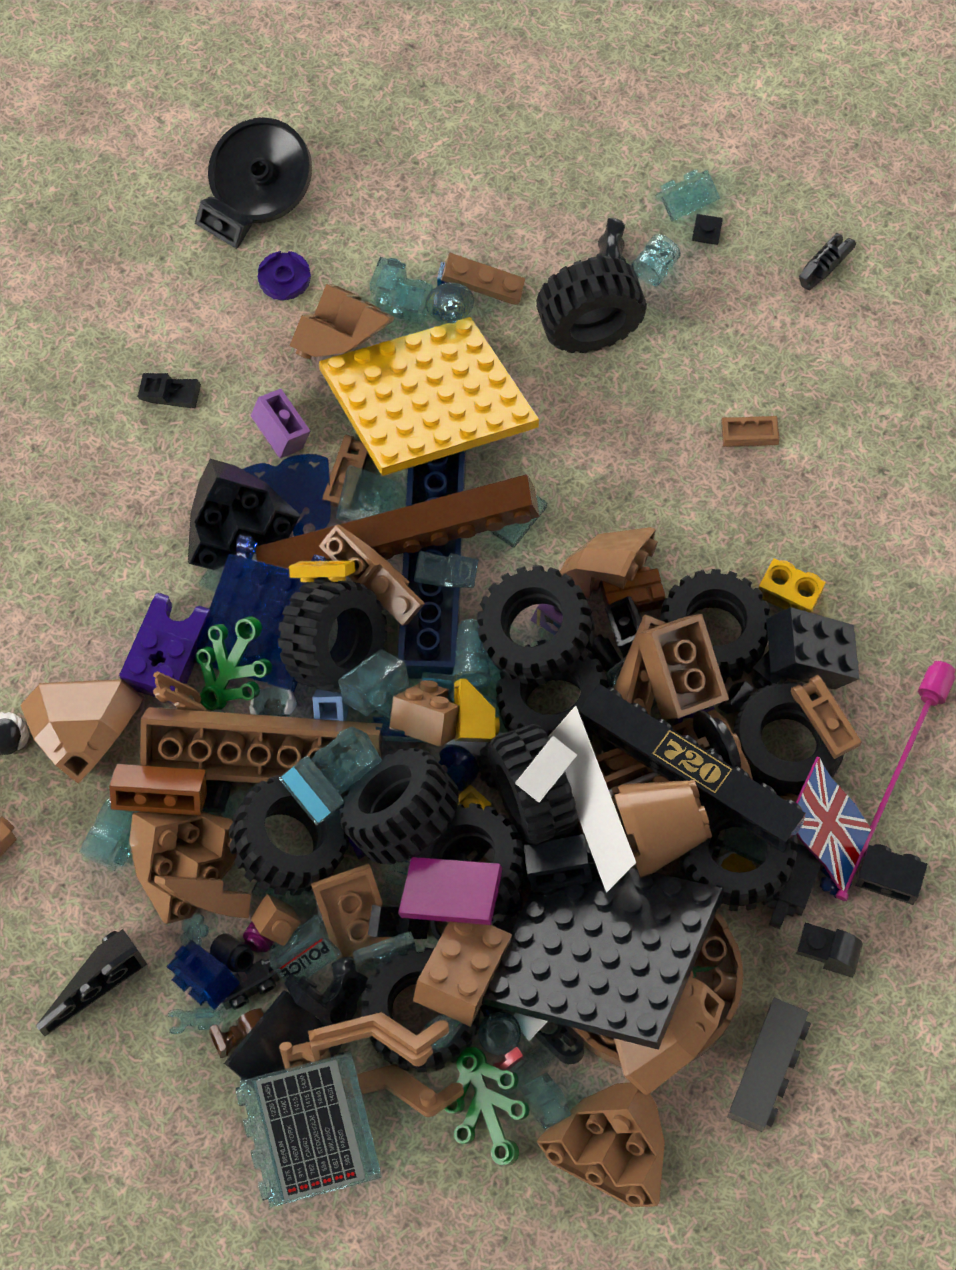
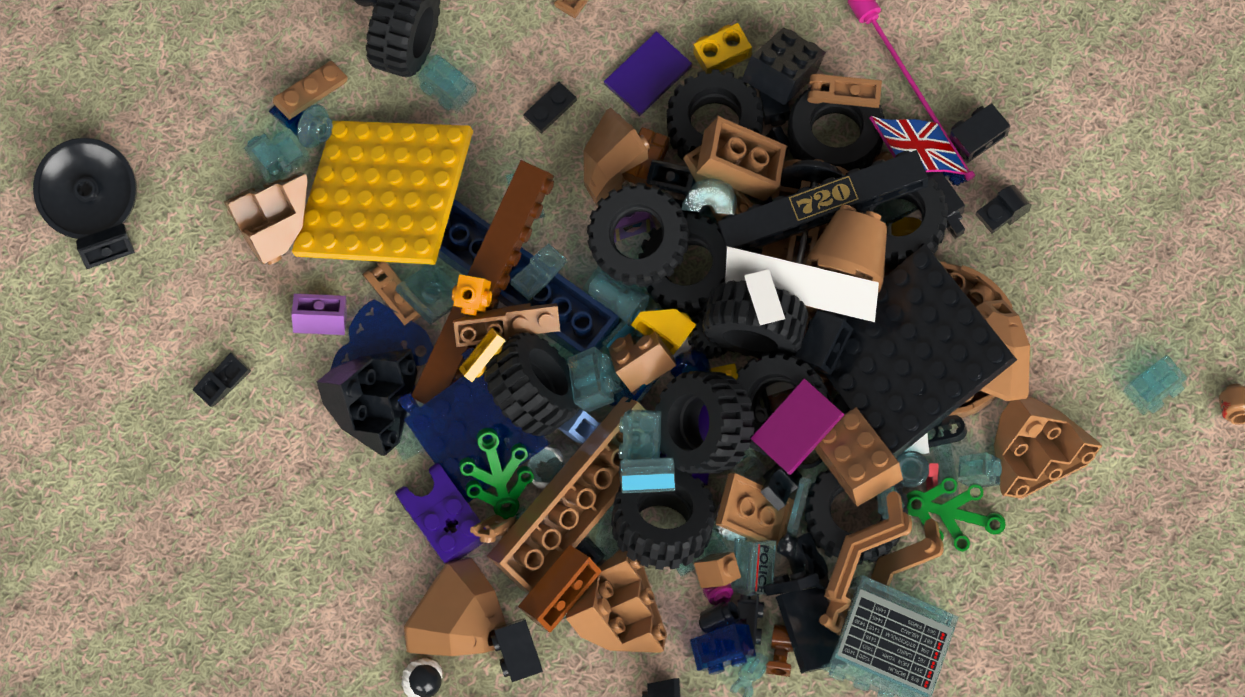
camera: 50 degrees left, 5 degrees up
(75, 792) = (518, 650): none -> black brick
(109, 837) = (564, 650): clear light blue brick -> none
(194, 930) = (680, 635): clear light blue plant -> none
(207, 895) = (666, 604): medium nougat slope -> none
(289, 281) = (194, 235): dark purple tile -> none
(373, 523) = (471, 294): none -> light orange brick
(575, 382) = (446, 84): none -> clear light blue brick
(621, 482) = (550, 107): none -> black plate
(624, 662) = (711, 193): none -> clear light blue cylinder
(718, 542) = (648, 73): none -> dark purple tile
(761, 1220) = (1155, 385): none -> clear light blue brick
(768, 1064) = (1054, 306): dark grey brick -> none

